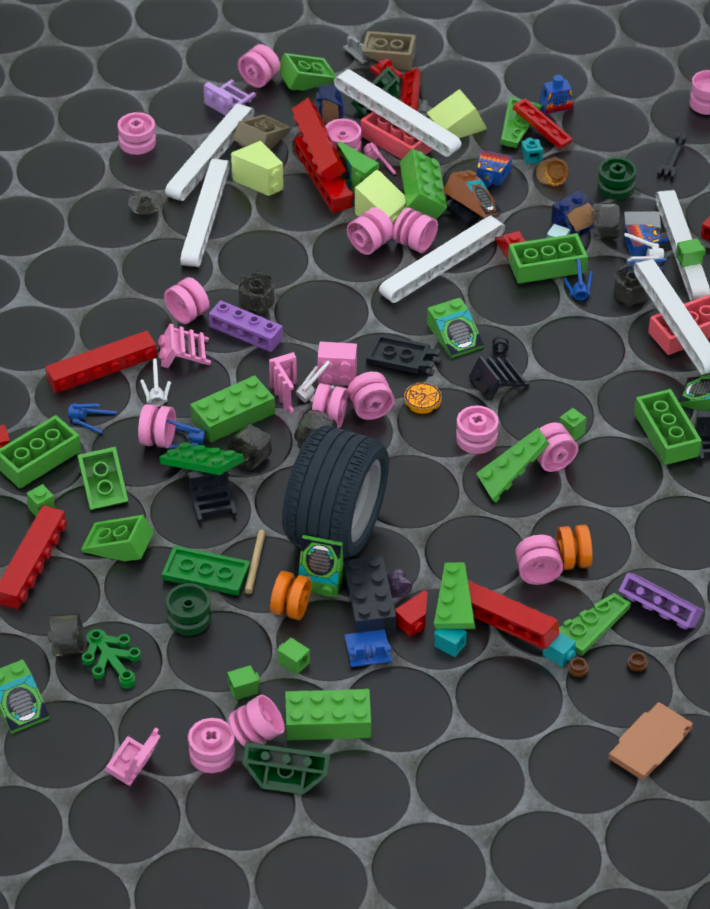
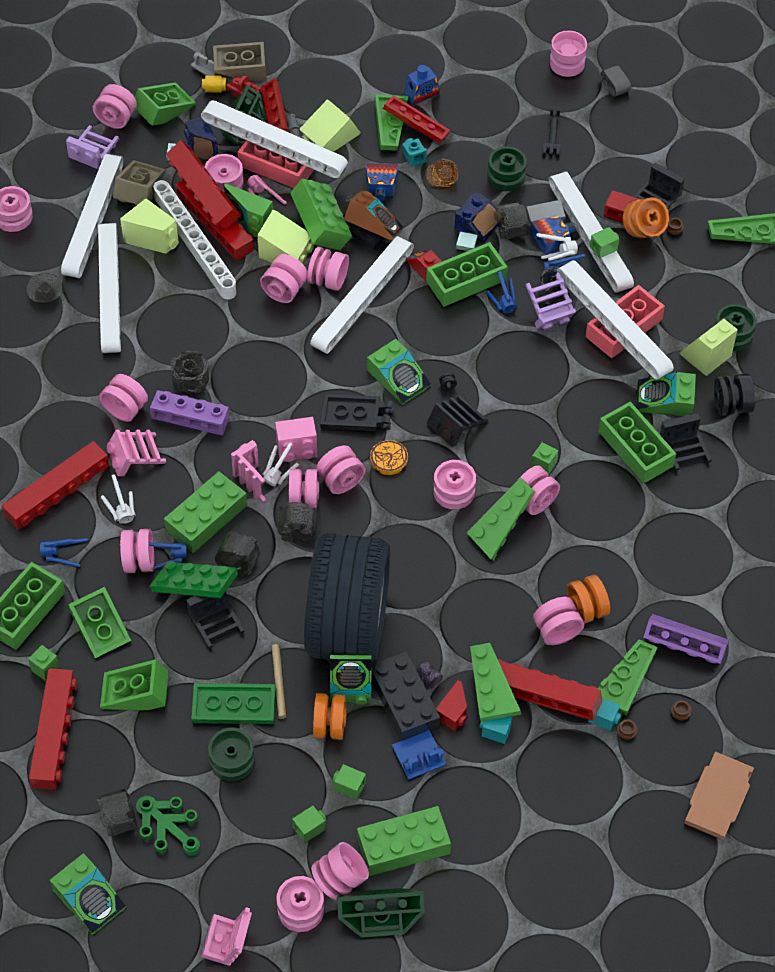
camera: 15 degrees left, 10 degrees up
(299, 188) = (195, 240): none -> white beam
(359, 64) = (214, 84): none -> yellow brick
(624, 304) = (555, 313): none -> lavender plate

